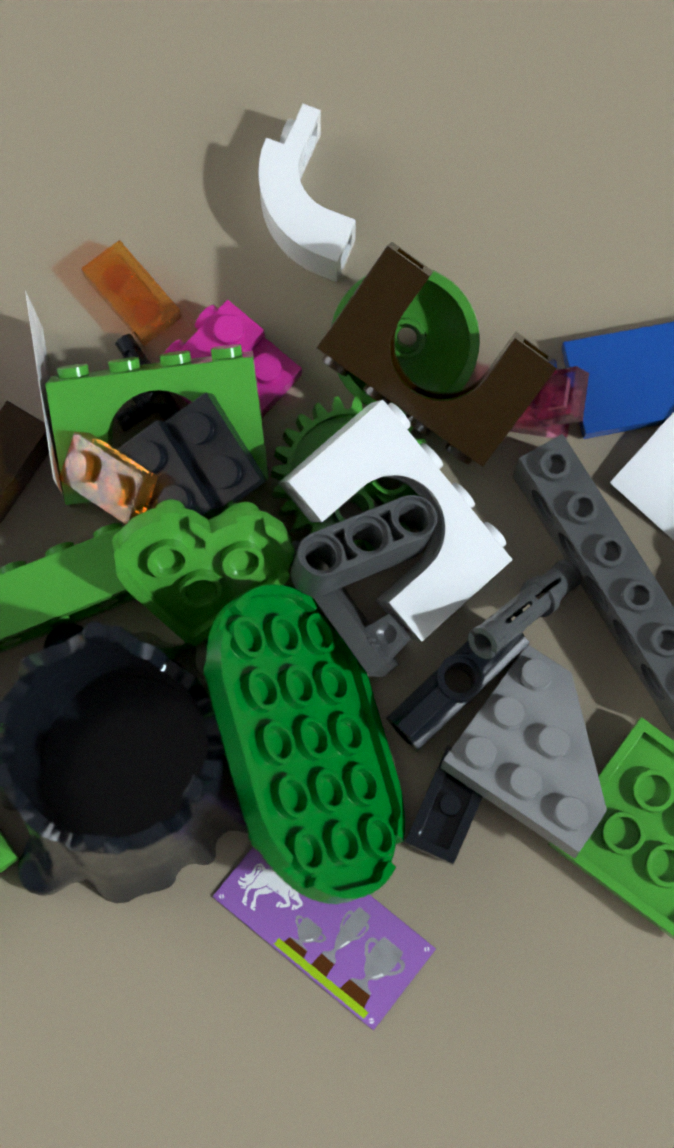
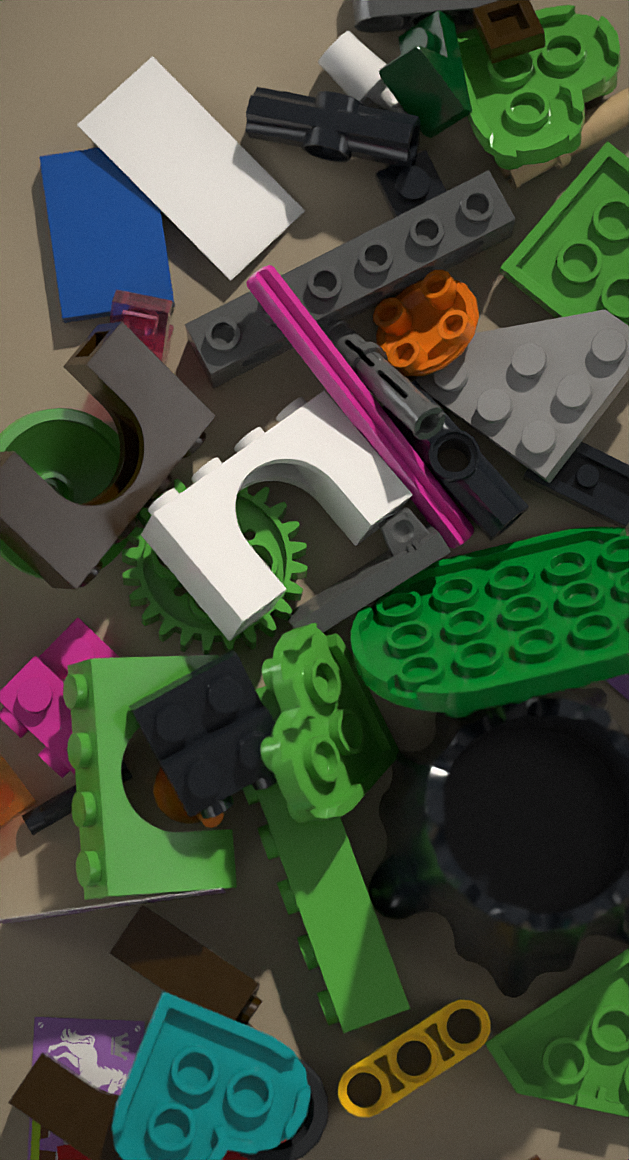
camera: 85 degrees left, 5 degrees up
(107, 477) = (223, 826): clear orange plate -> none
(376, 526) = (298, 524): dark grey beam -> none
(499, 589) = (359, 404): none -> dark pink axle
(582, 652) = (427, 324): none -> orange dish

